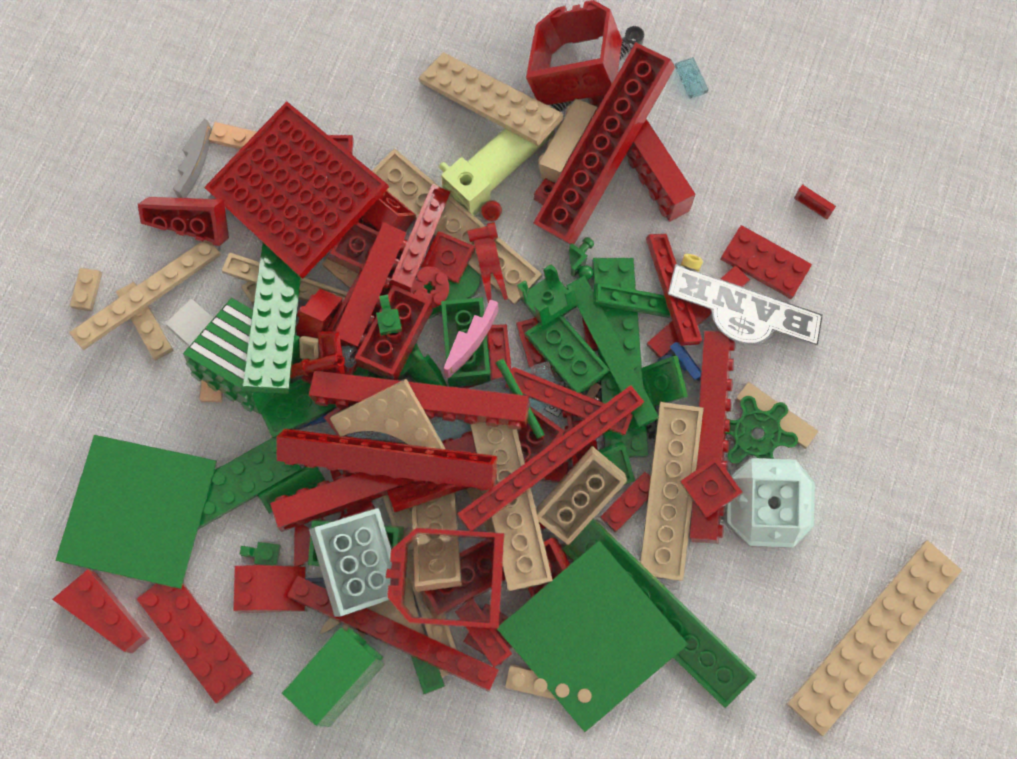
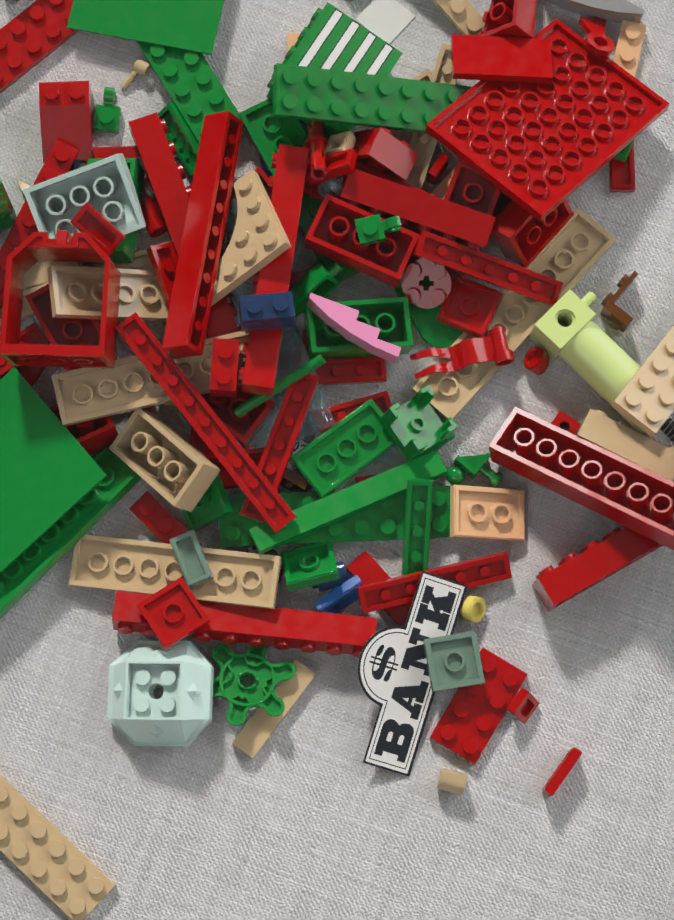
camera: 85 degrees right, 5 degrees up
(222, 525) = (139, 67): none -> tan hand
(228, 154) = (596, 39): none -> red piece
(240, 223) = (501, 58): none -> red tile
(327, 279) = (438, 169): none -> red tile
(378, 549) = (98, 228): none -> red tile
(449, 156) = (615, 315): none -> reddish brown bracket
(463, 398) = (266, 311): none -> dark blue brick
(507, 439) = (225, 367): none -> red brick
(617, 249) = (487, 513): none -> light nougat tile
(663, 474) = (191, 559): none -> sand green tile
(737, 273) = (453, 661): none -> sand green plate
(765, 228) = (523, 705): none -> red plate
(826, 281) = (451, 781): none -> tan brick

